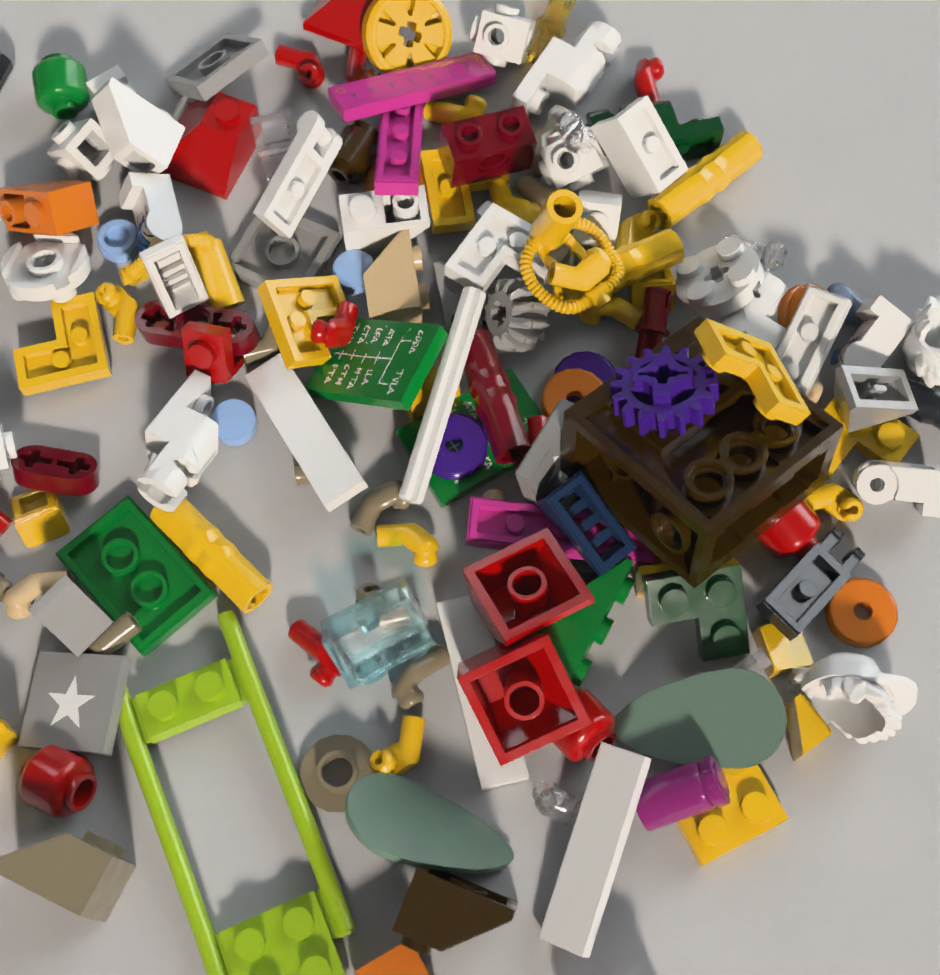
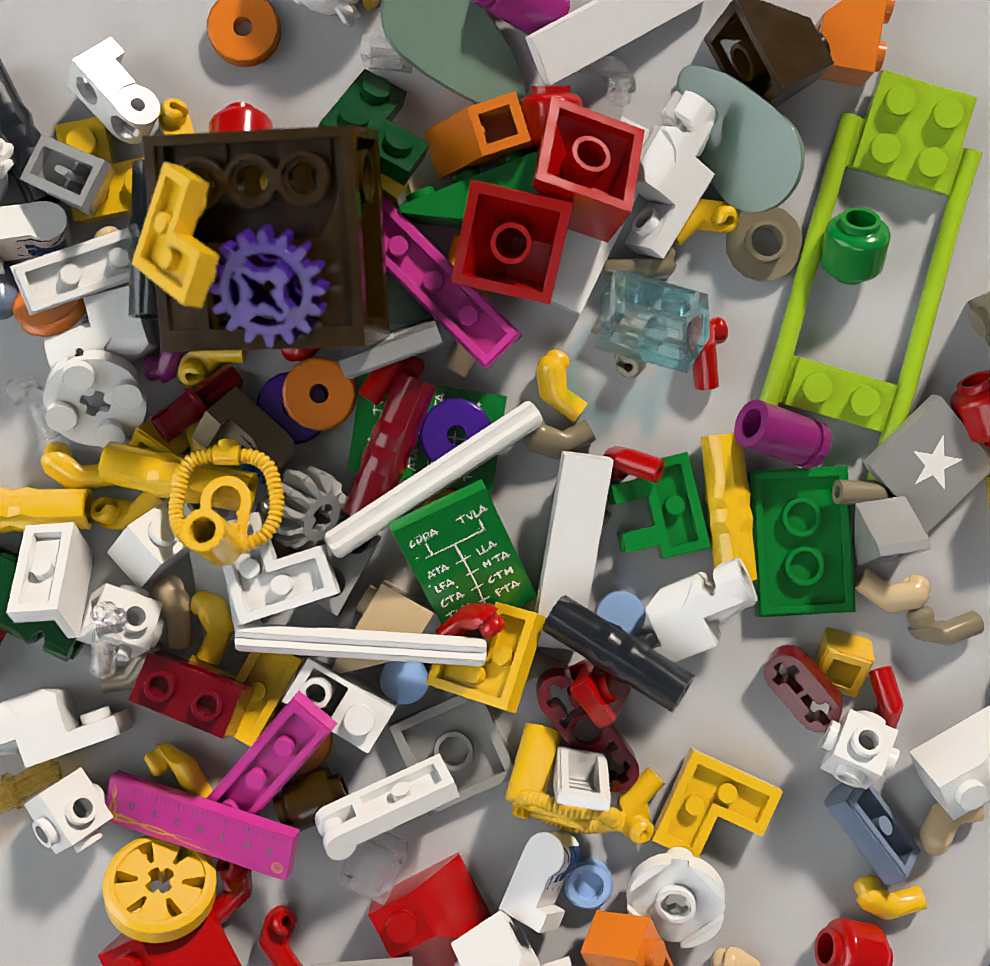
camera: 135 degrees left, 20 degrees up
(209, 627) = (782, 434): none -> magenta piece
(214, 376) = (618, 653): none -> black axle
(255, 521) = (672, 507): none -> green plate
(261, 819) = (855, 246): none -> green head
(314, 520) = (634, 463): none -> red arm
(398, 255) = (361, 644): none -> white axle
(453, 756) = (671, 173): none -> white plate
(562, 520) = (411, 297): dark blue slope -> none
(583, 275) = (228, 475): yellow arm -> none
(598, 335) = (242, 420): none -> dark tan leg
(620, 665) = (478, 136): none -> orange slope
(705, 227) = (67, 471): none -> yellow arm
(781, 651) = (333, 51): yellow slope -> none
(808, 586) = (268, 74): hinge -> none

